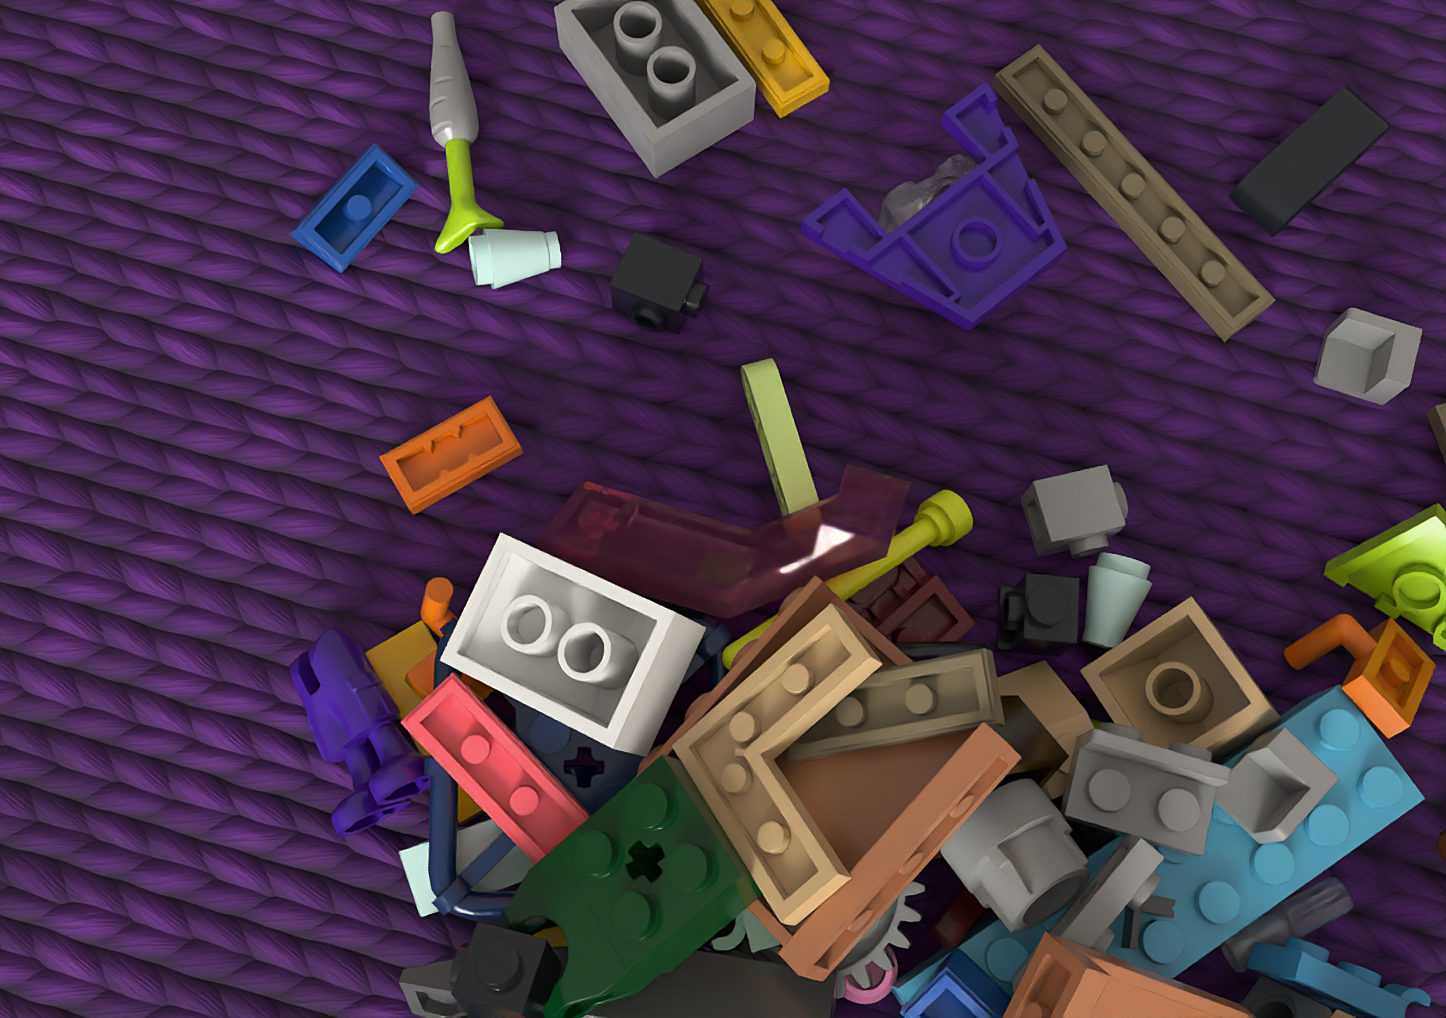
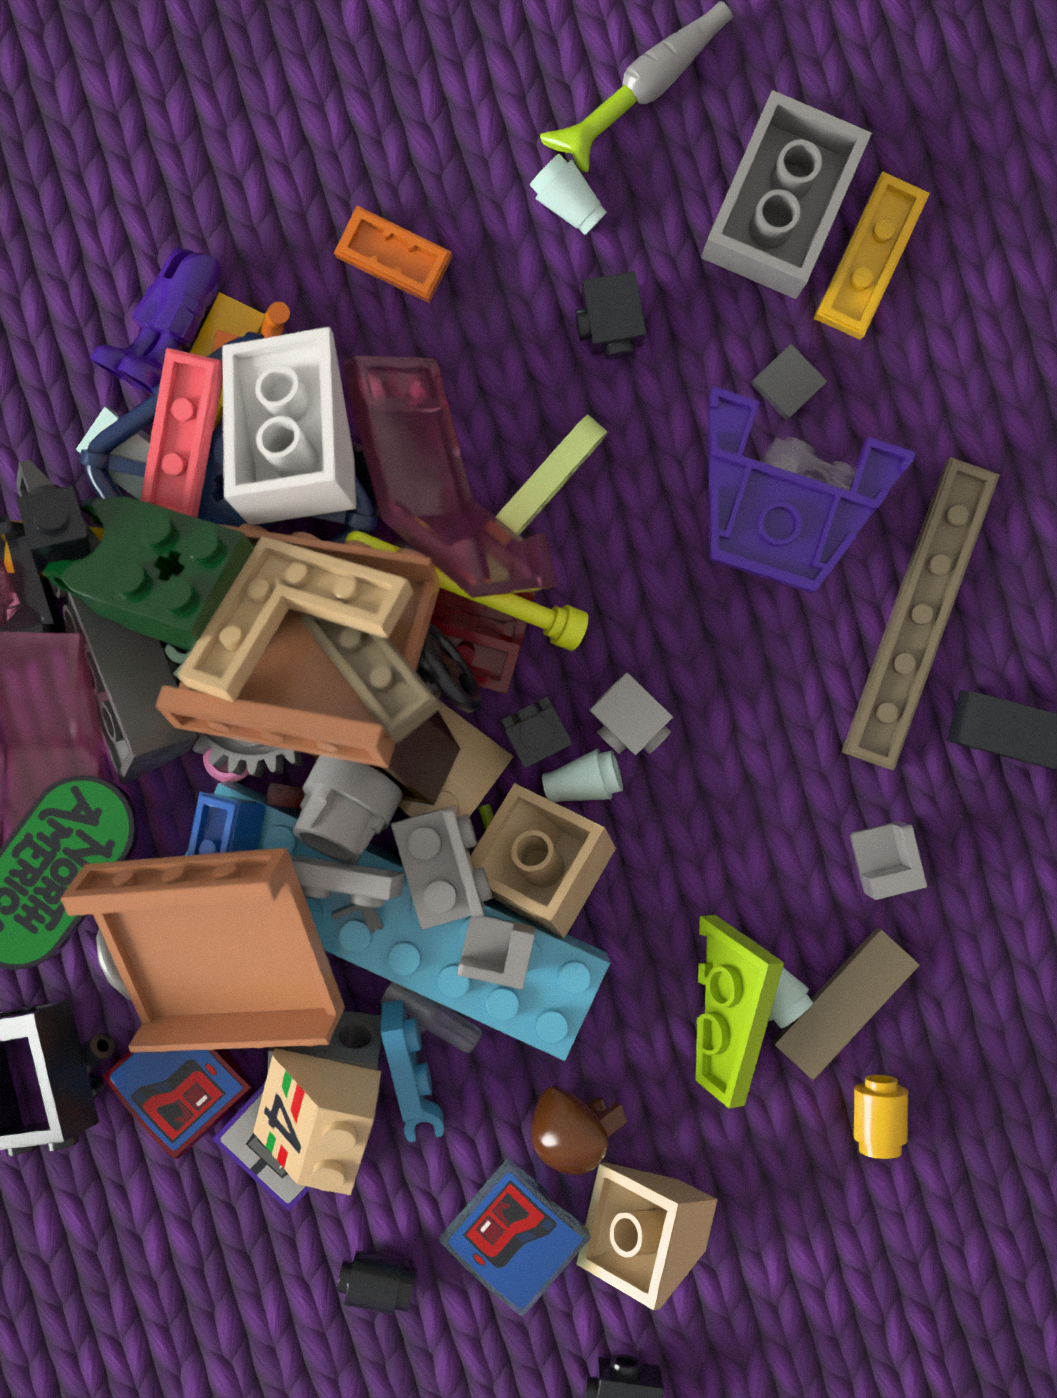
camera: 60 degrees right, 15 degrees up
(355, 208) = (534, 54): blue slope -> none
(828, 168) = (788, 382): none -> dark grey tile
(1386, 673) = (643, 993): orange plate -> none

